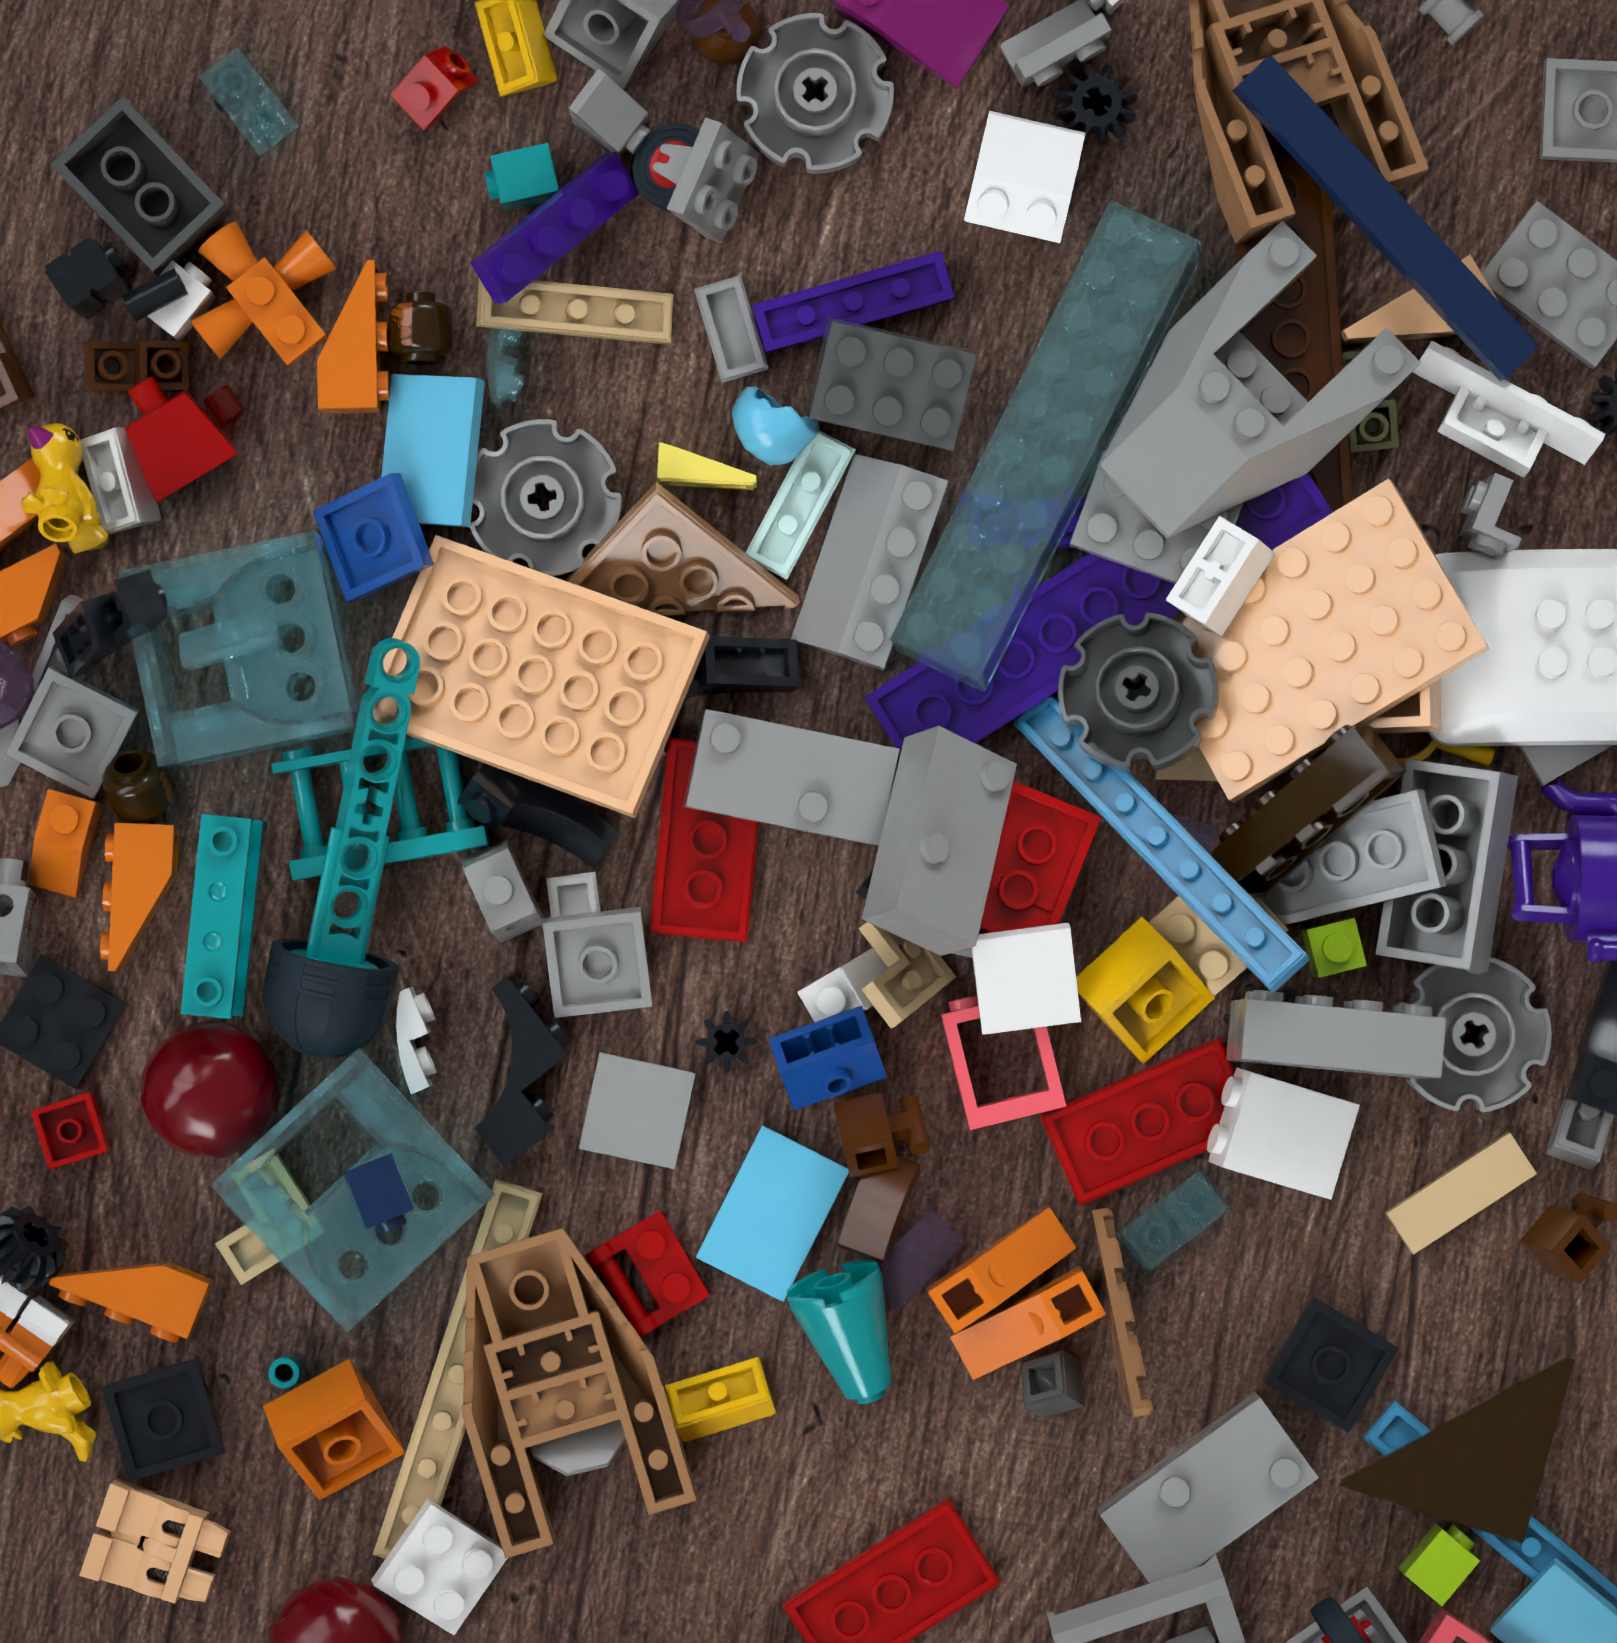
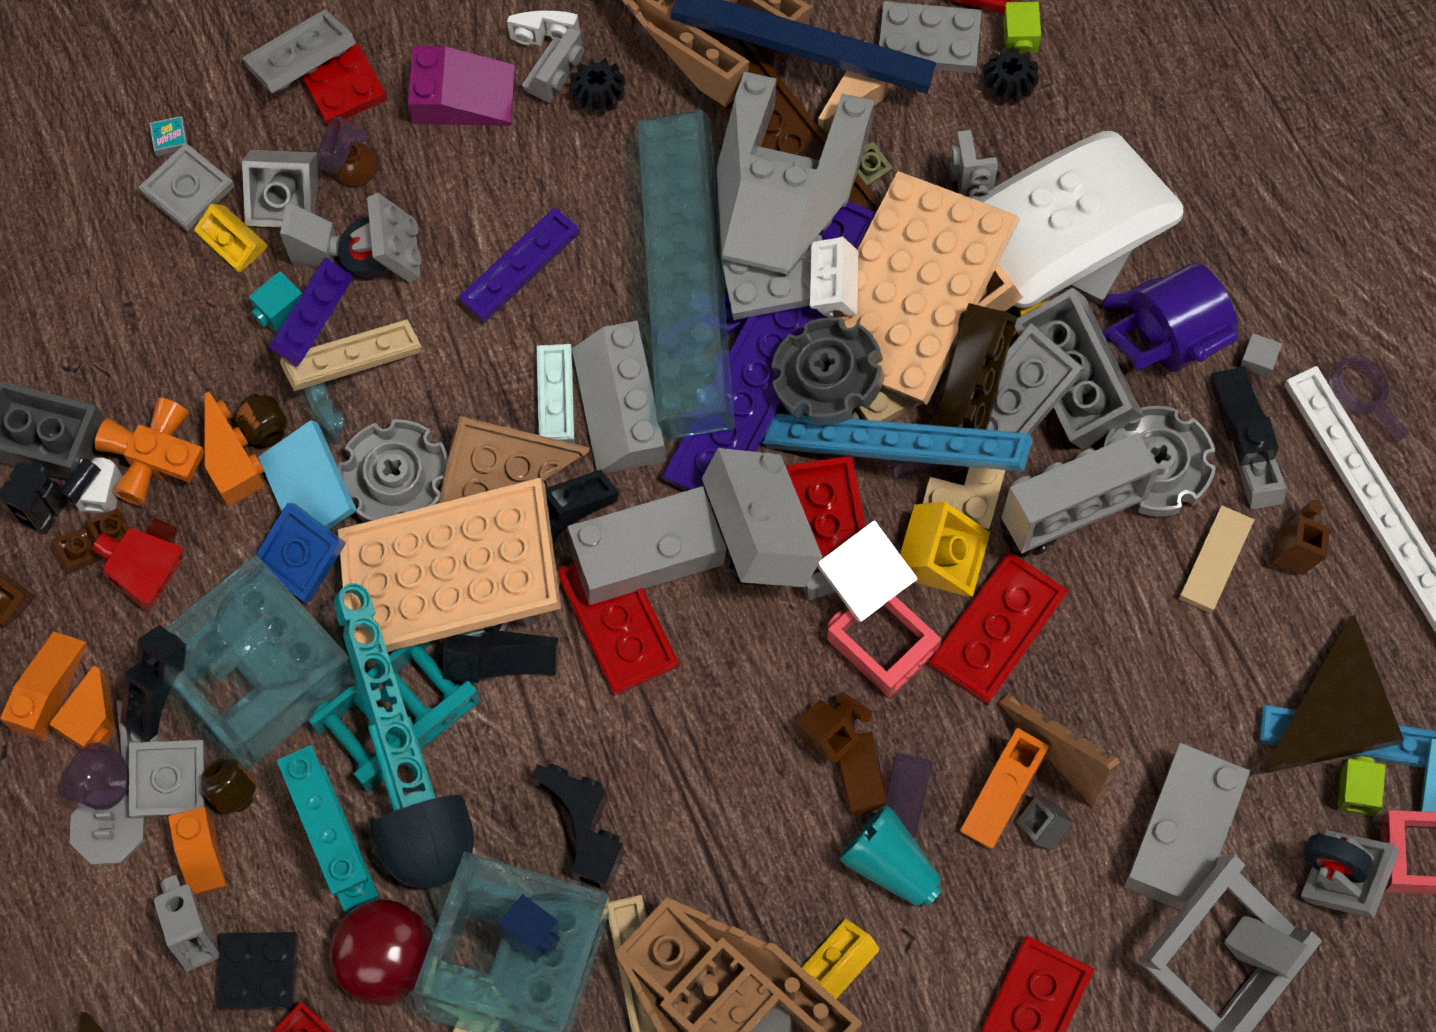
camera: 25 degrees left, 20 degrees down
(62, 498) = (84, 638): yellow animal -> none
(118, 482) = (116, 614): white slope -> none
(142, 874) = (263, 843): orange slope -> none
(248, 101) = (81, 355): clear light blue slope -> none
(411, 1023) = (495, 836): white slope -> none
(434, 86) = (192, 284): red bracket -> none
(502, 891) = (502, 715): light grey torso -> none
(573, 894) = (553, 701): white tile -> none
(597, 962) = (590, 726): light grey plate -> none
(637, 1110) = (672, 807): light grey tile -> none
(662, 1266) = (747, 896): red plate -> none
(688, 469) = (486, 403): light yellow slope -> none
(727, 1055) = (710, 734): black gear -> none
(731, 329) = (454, 319): light grey tile -> none
(770, 430) = (512, 354): medium azure hair -> none
(772, 1213) = (798, 821): medium azure tile -> none
(812, 54) = (427, 166): light grey piece -> none
(827, 1058) = (773, 698): blue brick -> none
(842, 987) = (761, 655): white slope -> none
(890, 384) = (568, 289): dark grey brick -> none
(910, 978) = (792, 618): tan plate -> none
(1000, 1270) = (964, 769): orange slope -> none
(1024, 176) = (579, 138): white slope -> none
(1172, 1221) = (1053, 677): clear light blue slope -> none
(1282, 1133) = (1085, 580): white brick -> none
(1330, 1364) = (1209, 706): black plate -> none
(1333, 947) = (1044, 452): lime brick -> none
(1500, 417) = (939, 116): white bracket -> none

